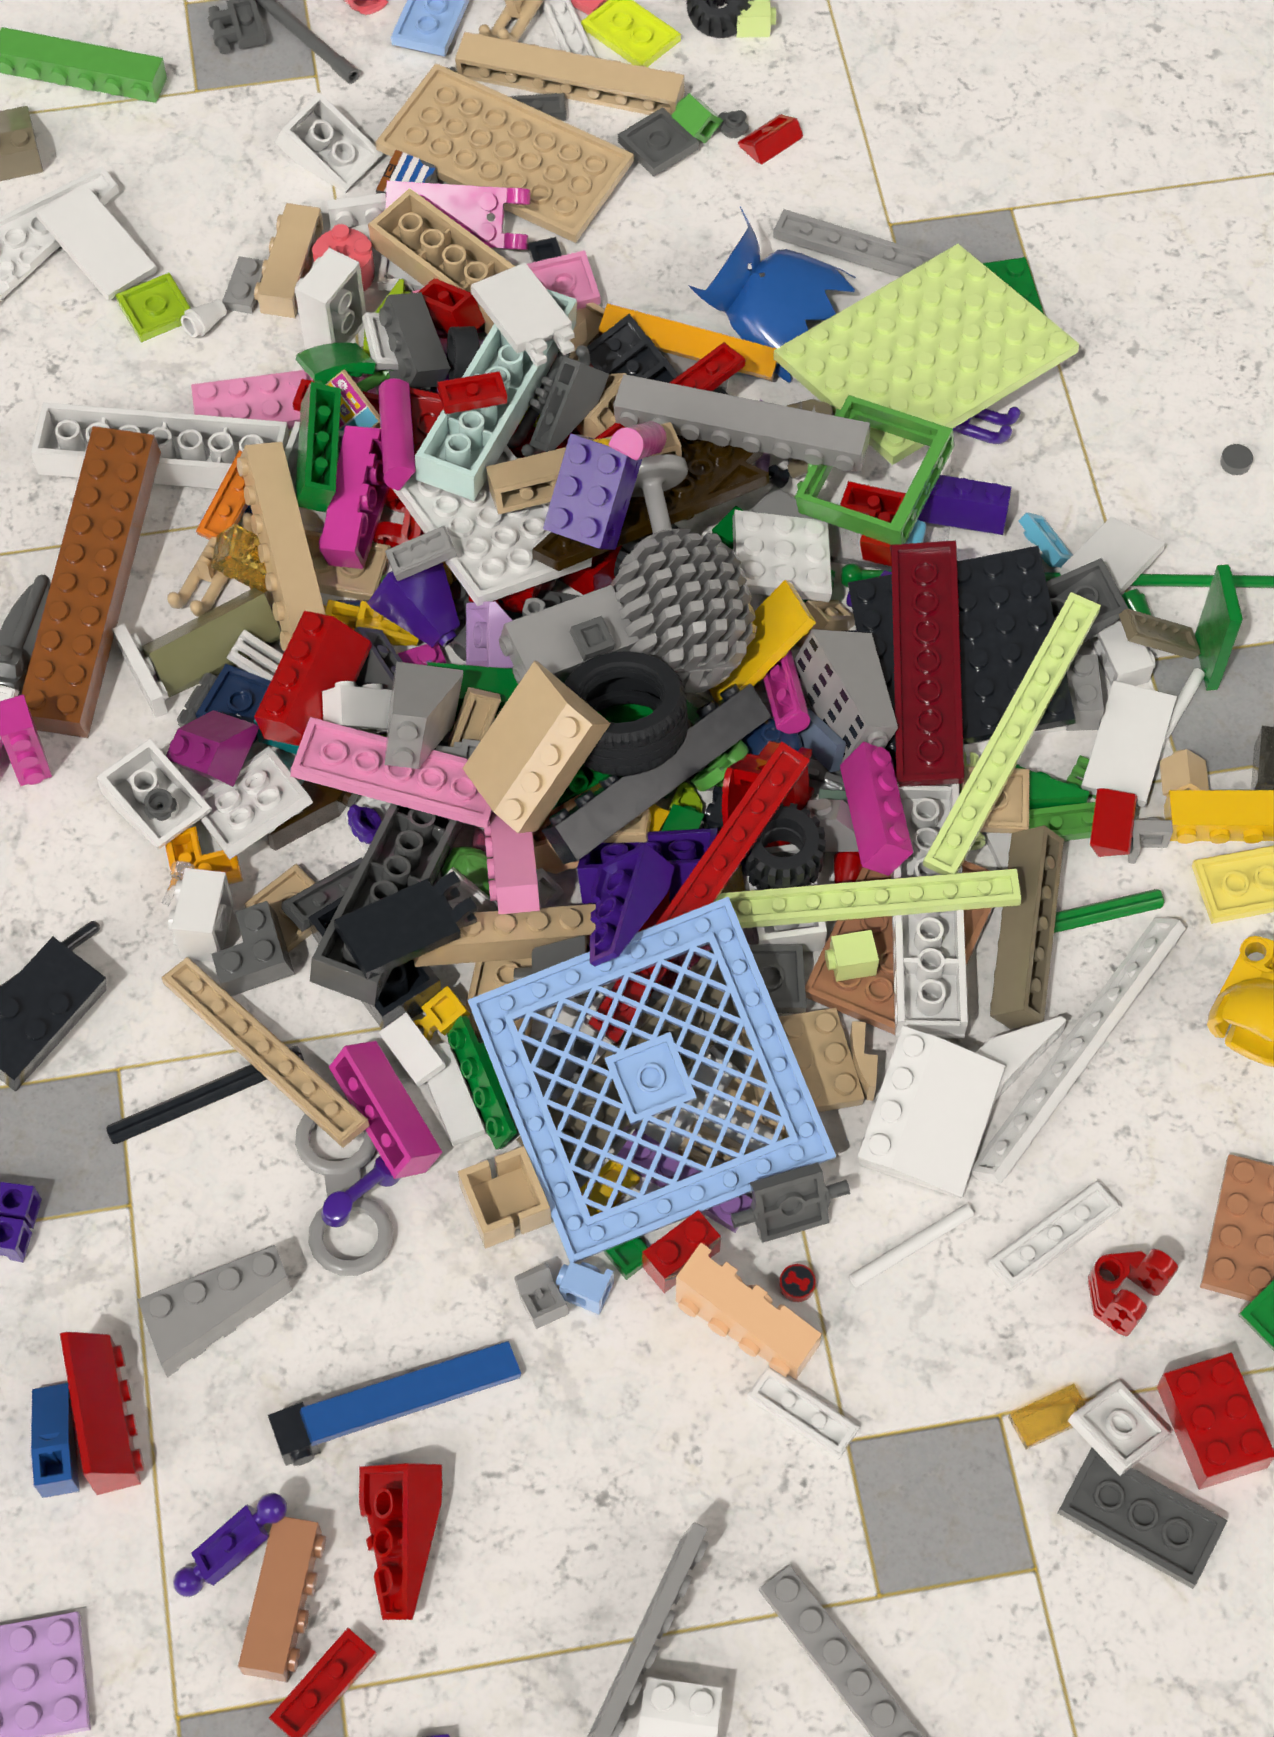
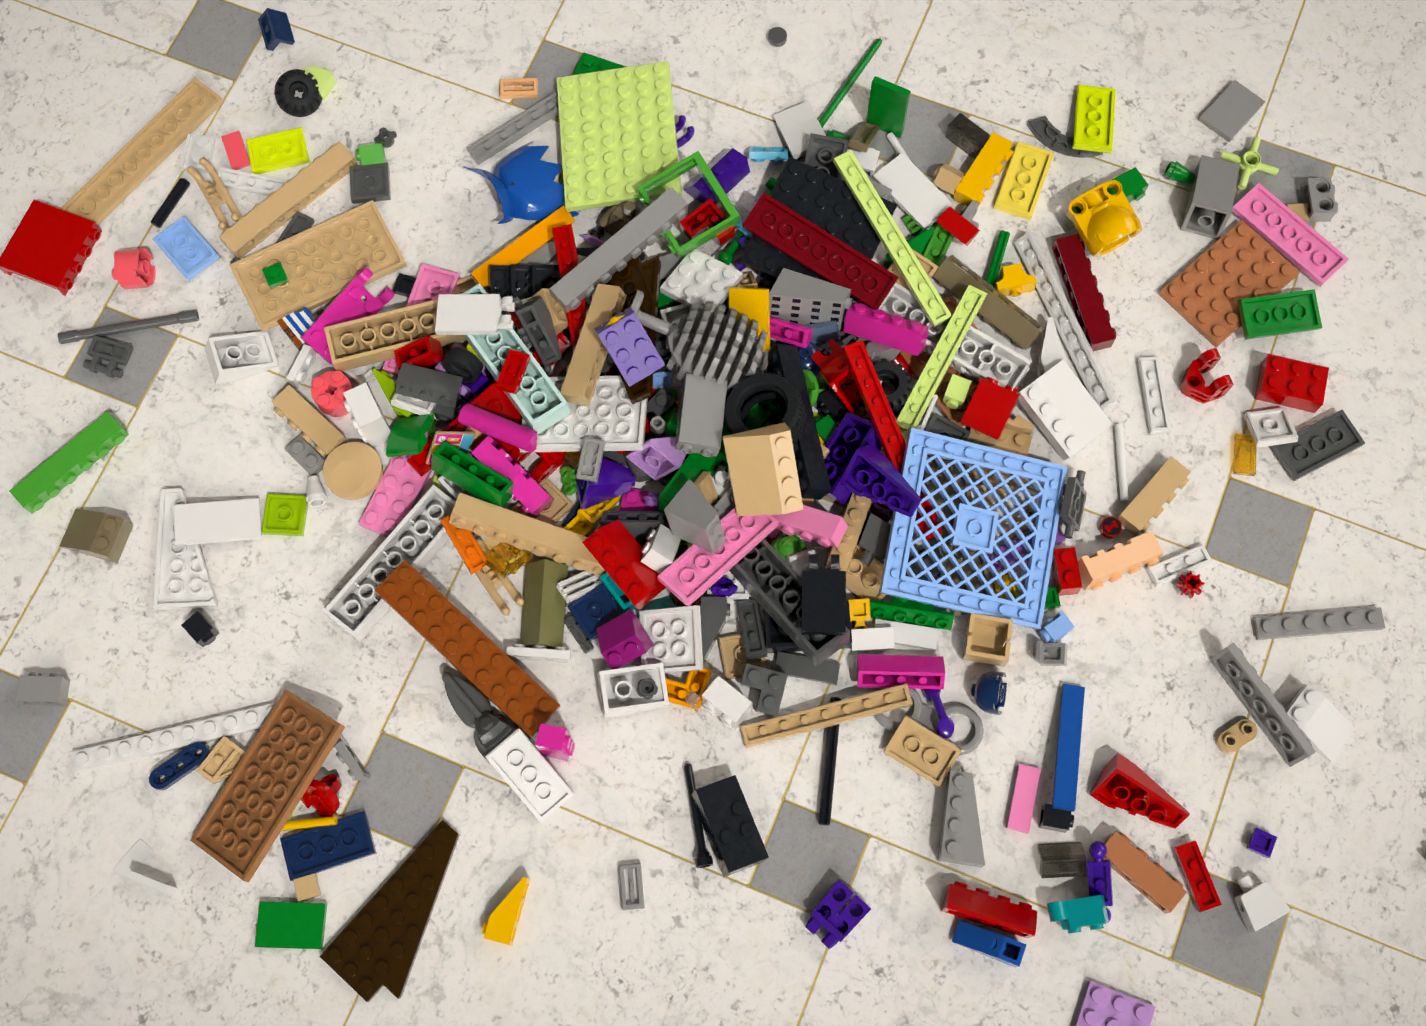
camera: 55 degrees left, 10 degrees up
(166, 1538) = (1079, 913): none -> teal hinge
(236, 1474) = (1062, 860): none -> clear smoke panel
(255, 338) = (353, 470): none -> tan piece
(287, 1199) = (922, 750): none -> tan plate
(300, 1378) = (1023, 798): none -> bright pink tile
(307, 843) = (712, 621): none -> dark grey slope
(323, 1003) = (803, 668): none -> dark grey tile
(429, 1246) = (990, 692): none -> dark blue cylinder
(454, 113) = (275, 275): none -> green plate
(580, 1638) = (1237, 735): none -> tan plate
(592, 638) = (716, 401): dark grey plate -> none
(639, 440) = (621, 303): brick -> none
(771, 138) = (409, 125): red slope -> none
(776, 1449) = (1186, 588): none -> red gear
(852, 1006) = (990, 408): none -> red brick
(885, 1315) = (1153, 496): none -> tan brick
(913, 222) = (519, 91): none -> light nougat tile
(1088, 946) = (1015, 281): none -> yellow brick
(1141, 1050) = (1083, 292): none -> dark red brick

